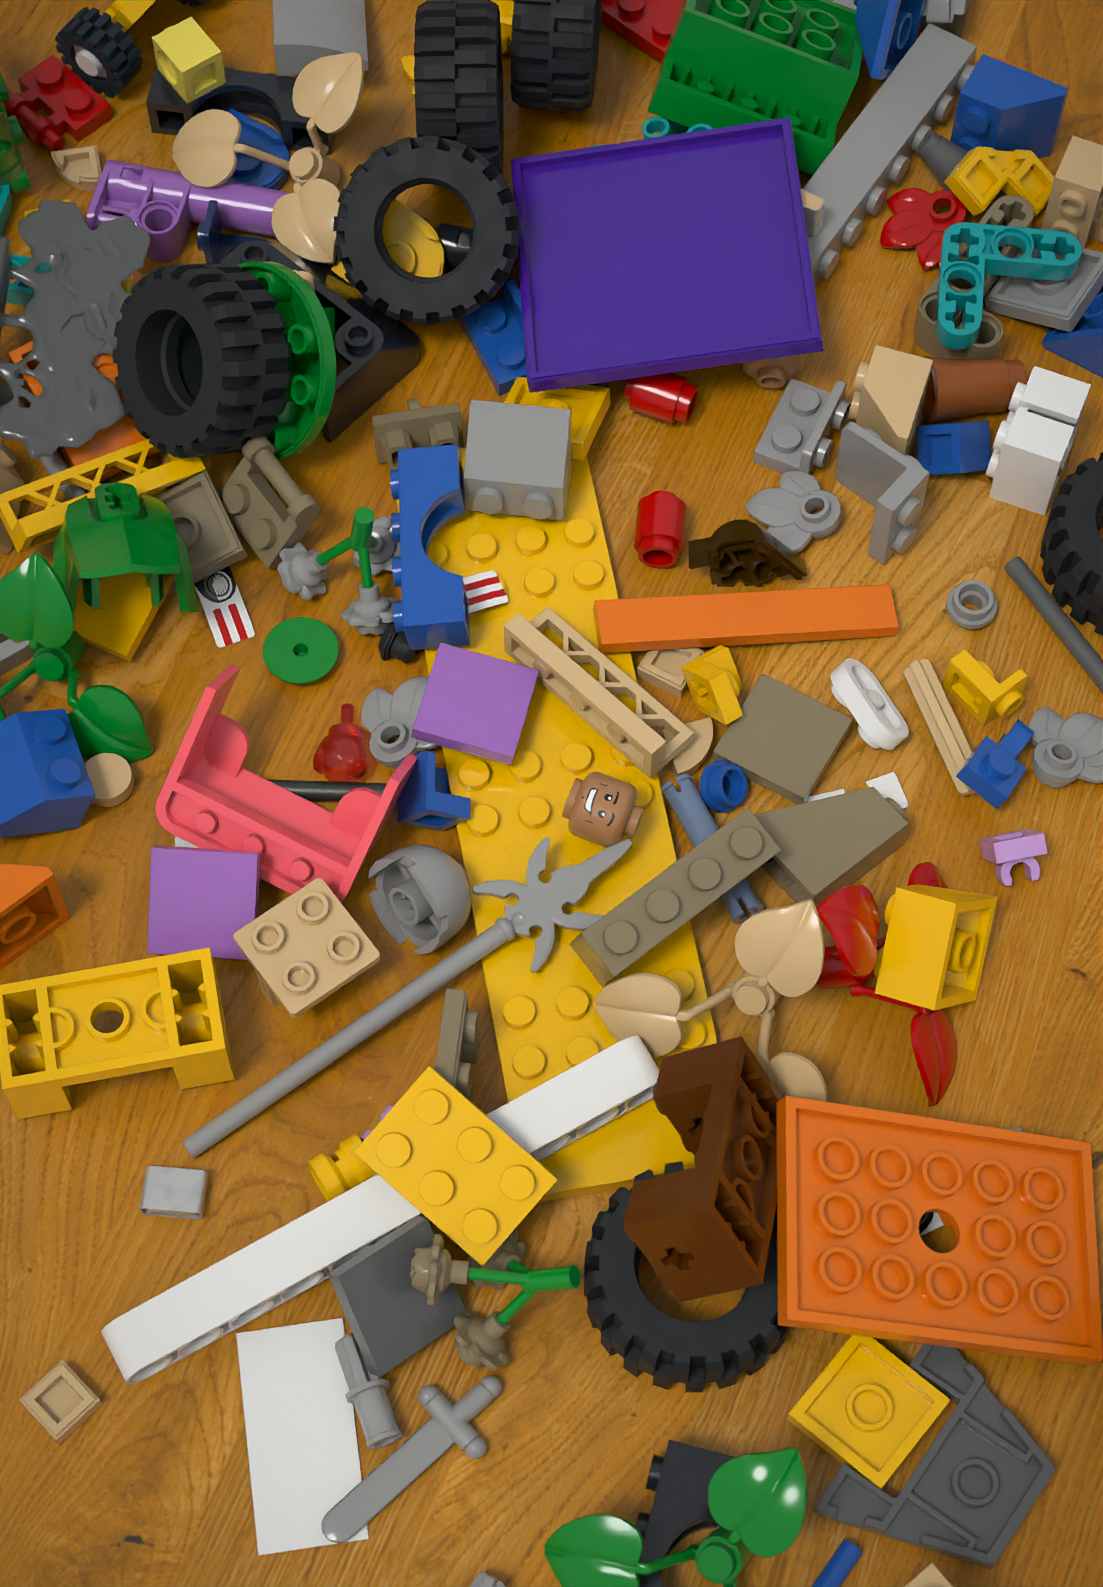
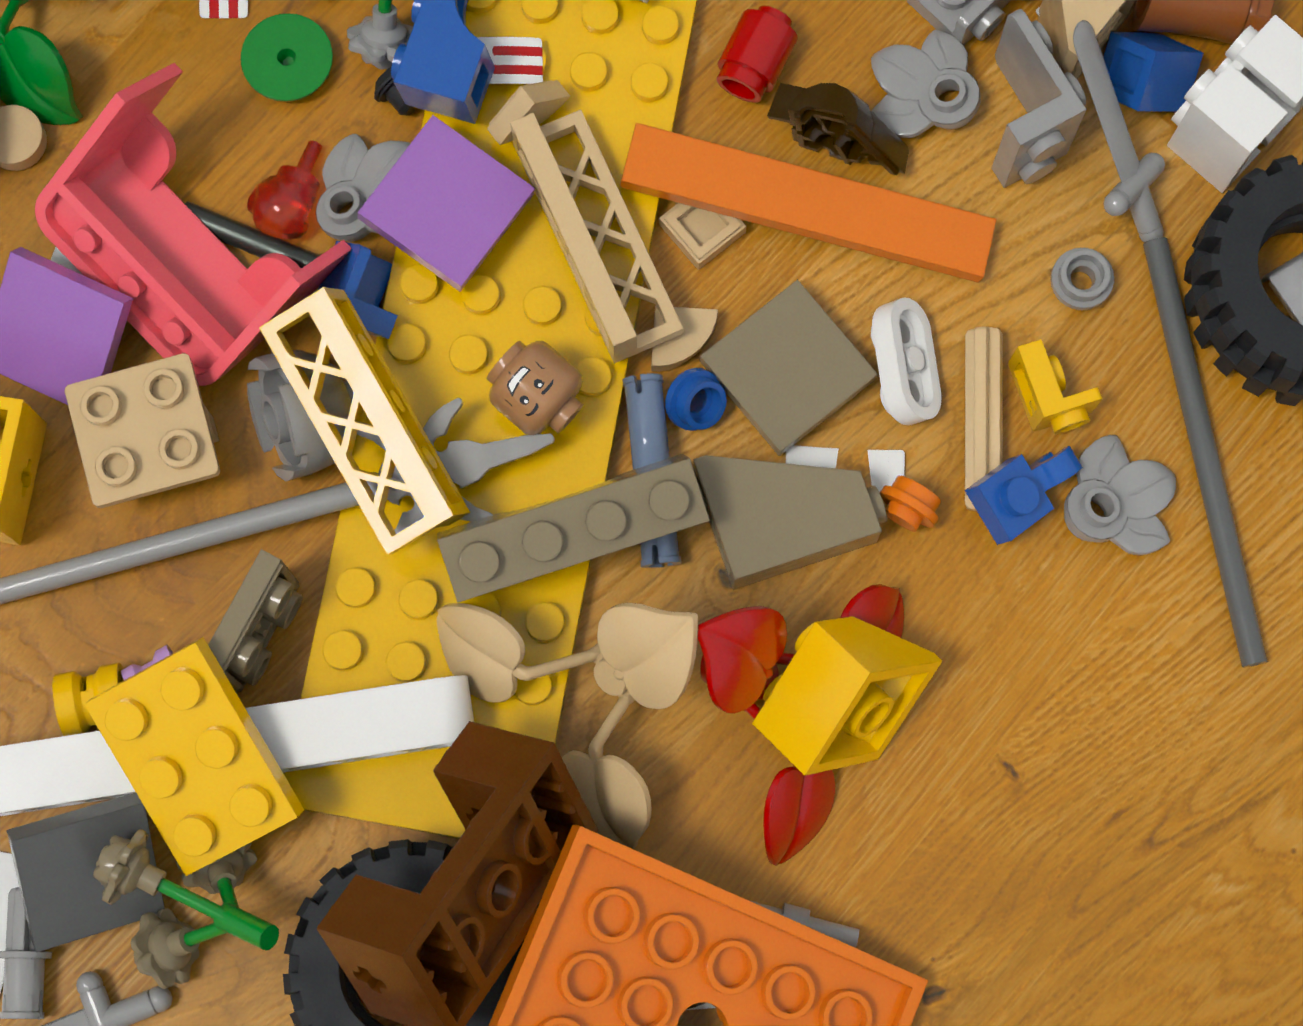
camera: 20 degrees right, 15 degrees up
(495, 854) = (384, 405): none -> fence
(505, 611) = (536, 98): none -> tan tile
(715, 684) = (737, 268): yellow bracket -> none
(920, 802) = (910, 504): none -> orange plate
(981, 529) = (1135, 175): none -> light grey sword
(1013, 848) = (997, 599): lavender tile -> none

